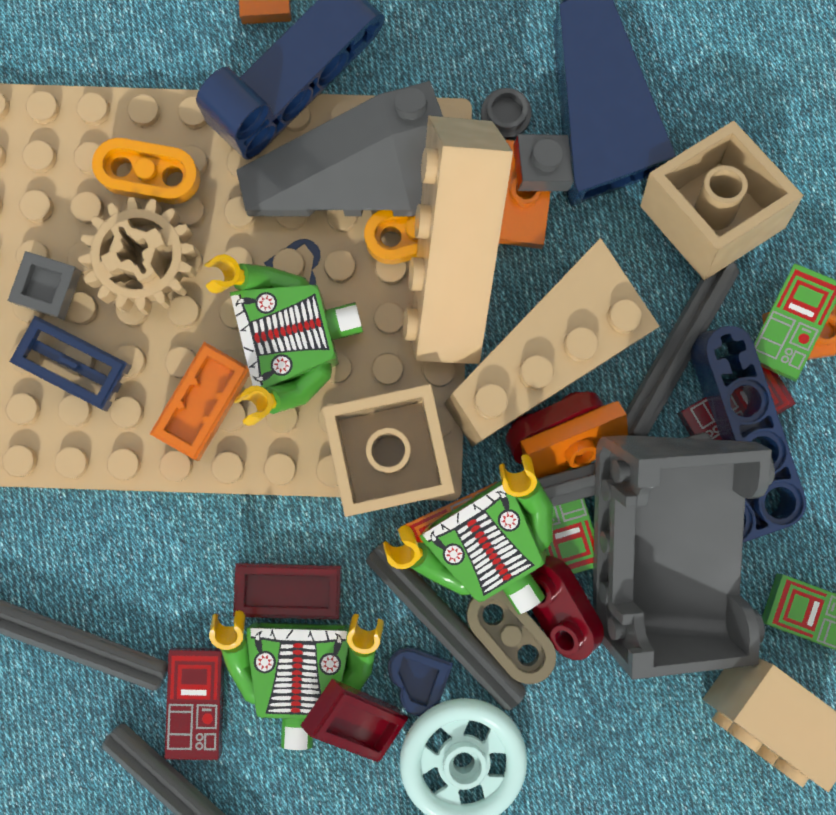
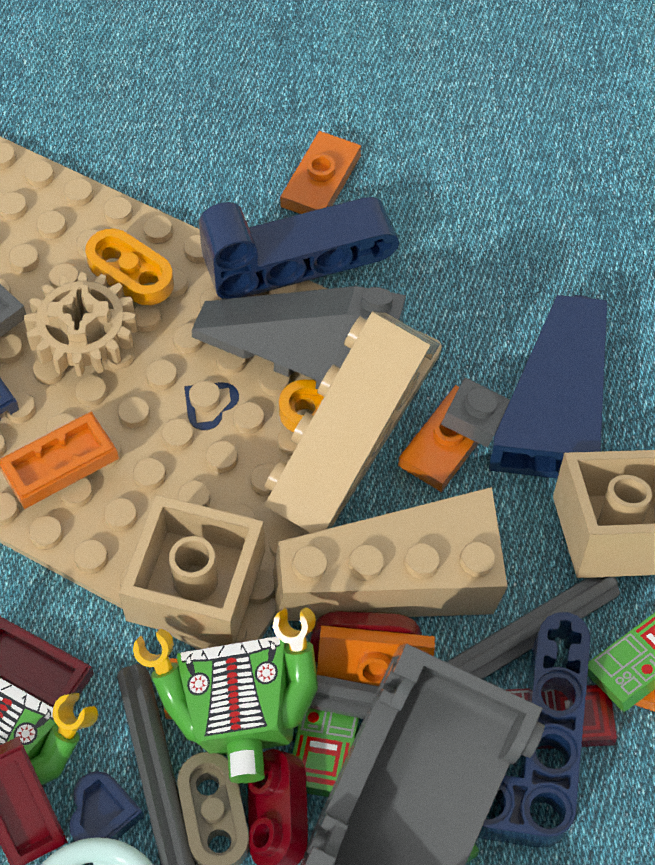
camera: 30 degrees right, 25 degrees down
(282, 333) = (163, 434): torso -> none
(508, 111) = (469, 361): dark grey plate -> none

